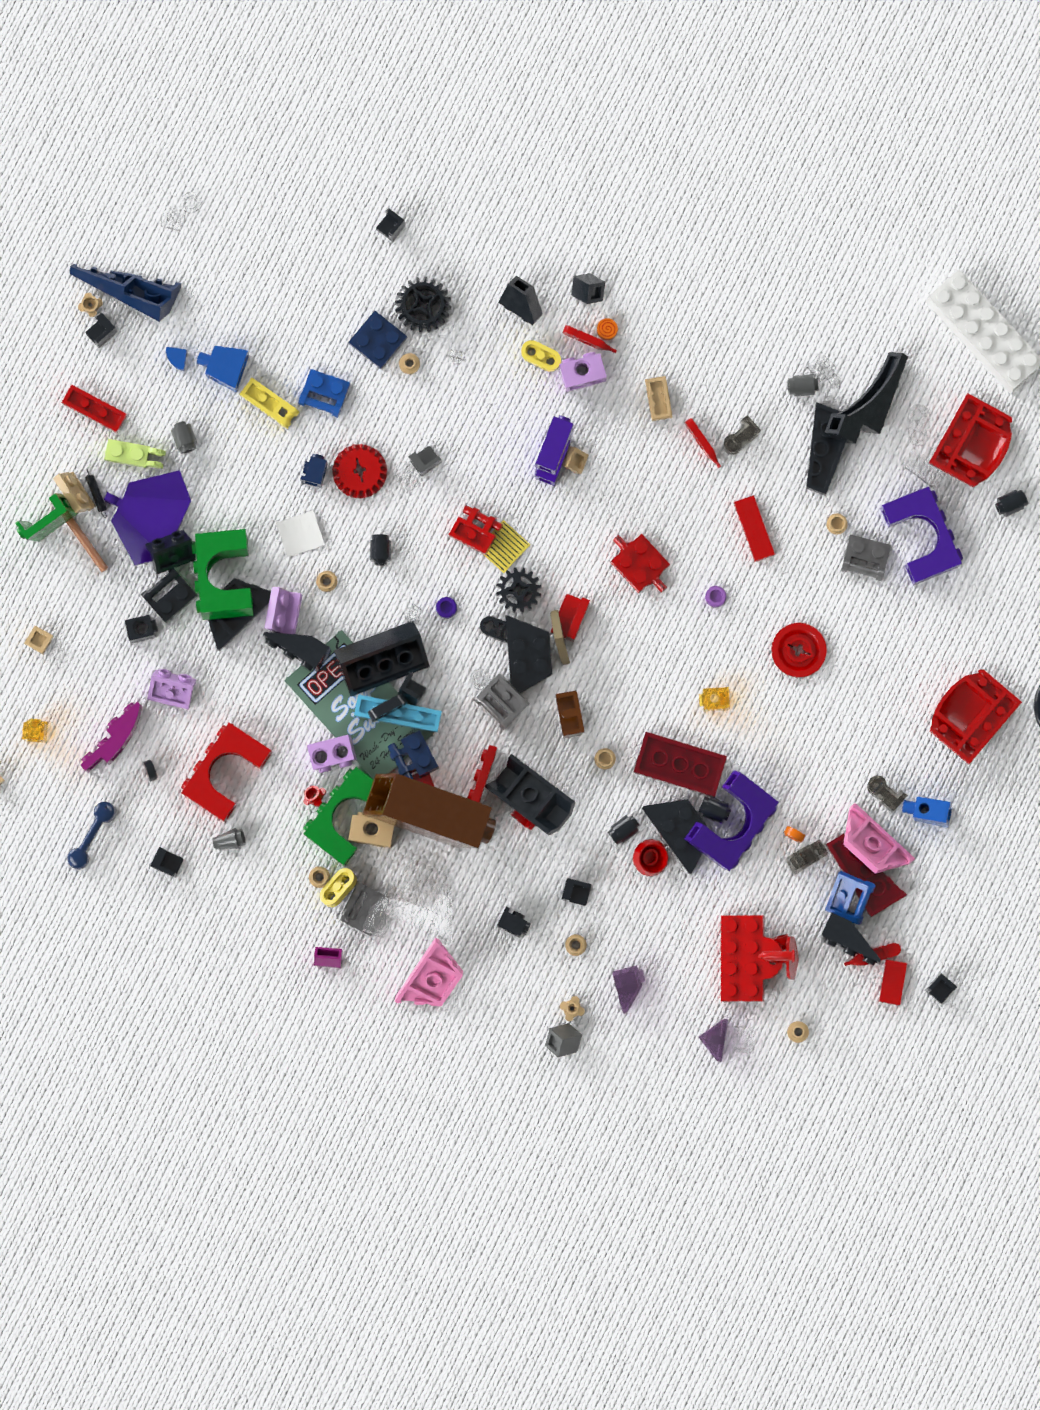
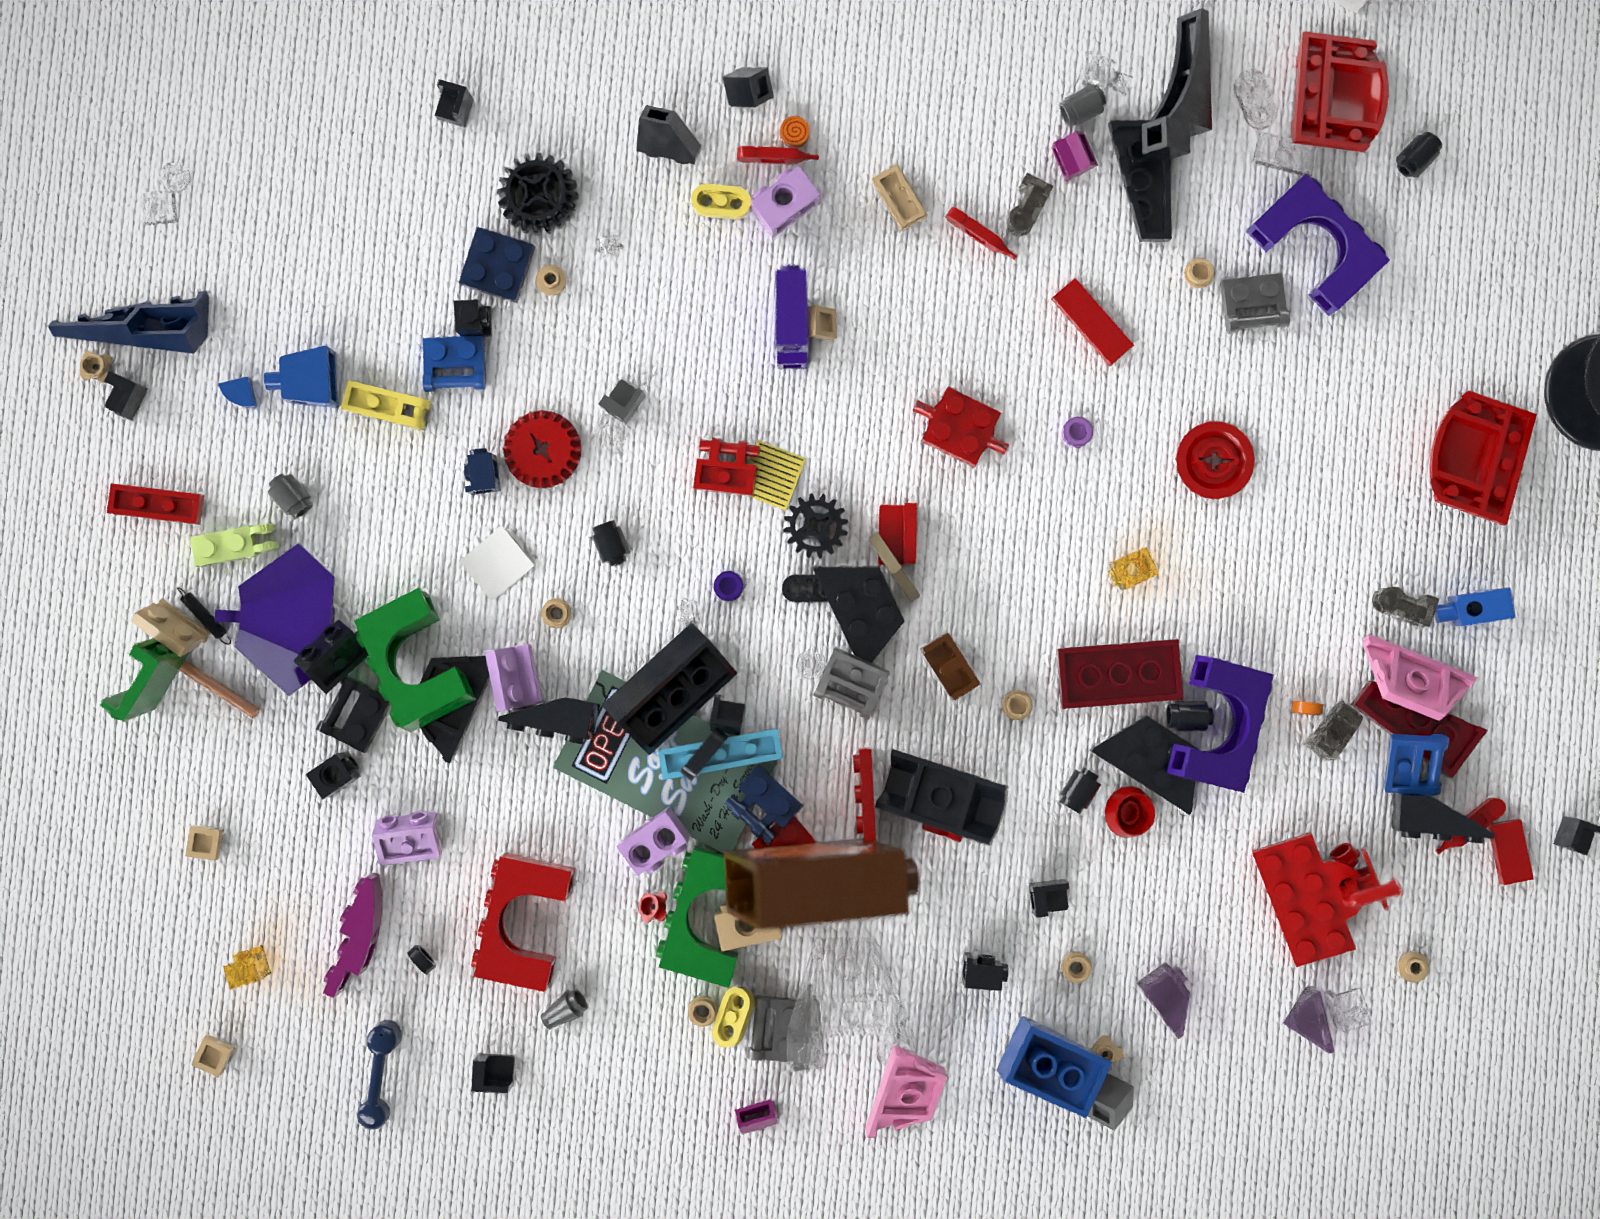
camera: 20 degrees left, 5 degrees up
(348, 369) = (472, 318): none -> black brick
(534, 1000) = (1053, 1067): none -> blue slope
(785, 415) = (1074, 155): none -> magenta piece

